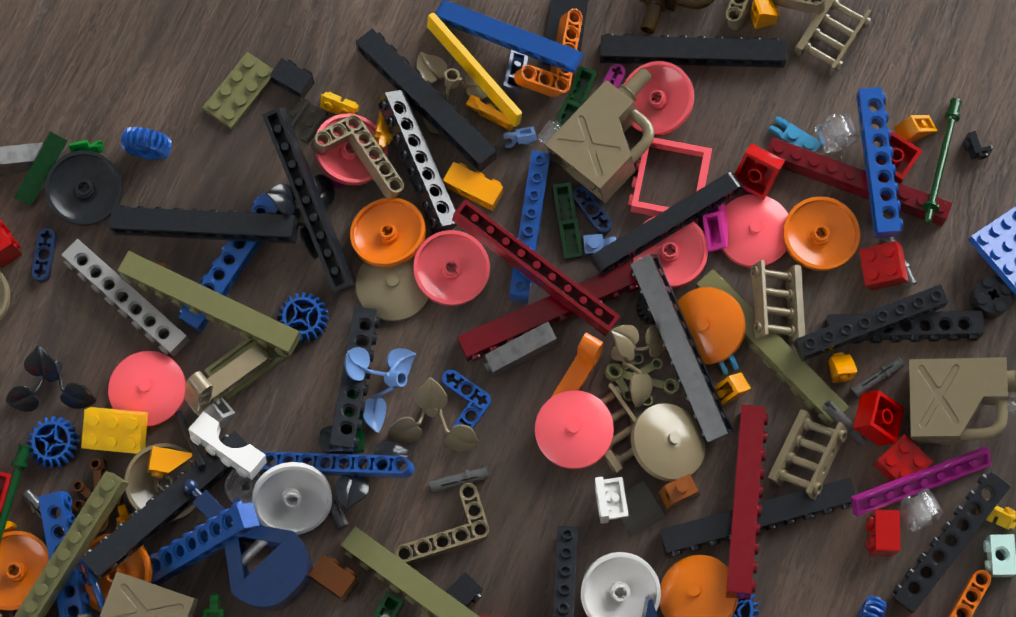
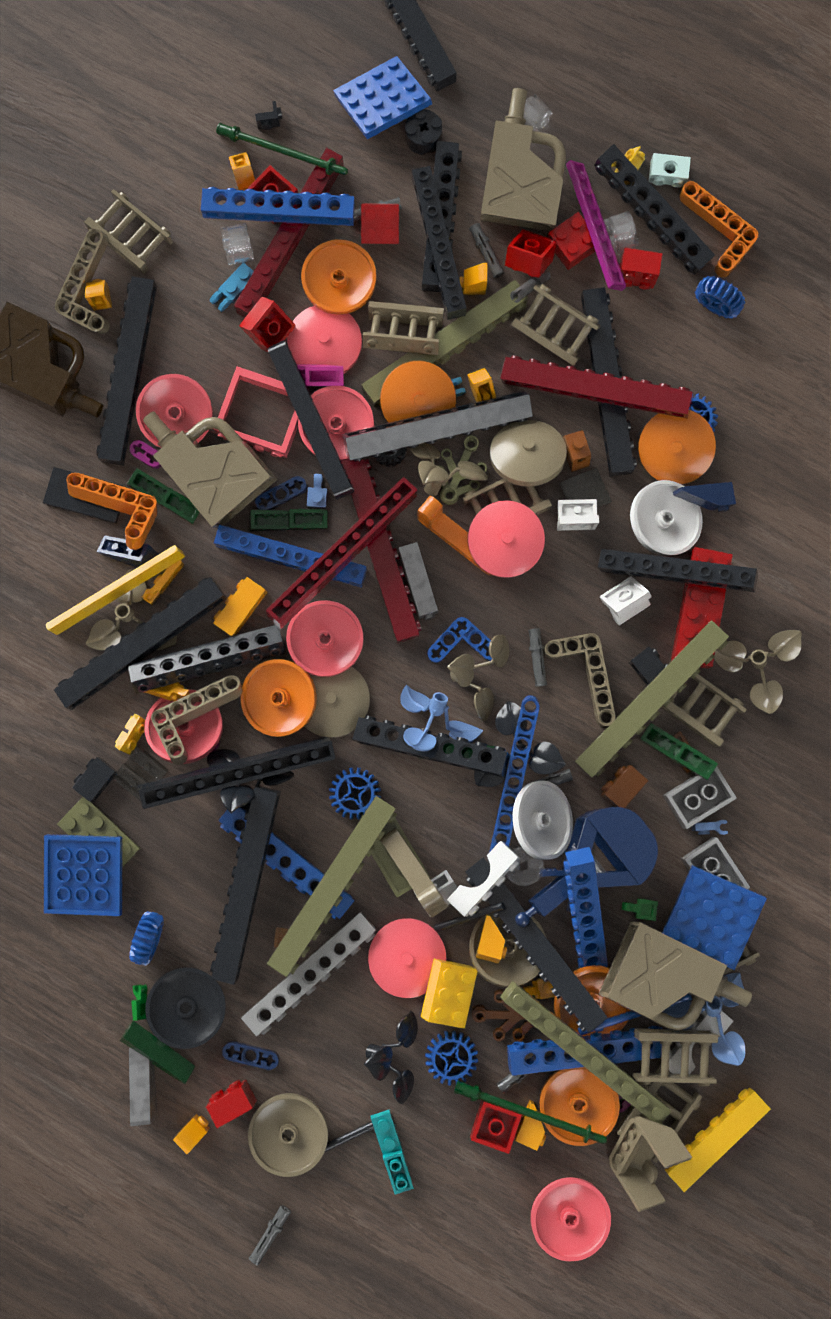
camera: 85 degrees left, 10 degrees up
(200, 80) = (83, 875): none -> blue plate
(509, 36) = (86, 549): blue beam -> none
(522, 135) = (192, 552): medium blue plate -> none
(528, 561) = (626, 600): none -> white bracket
(549, 130) = (196, 522): clear brick -> none

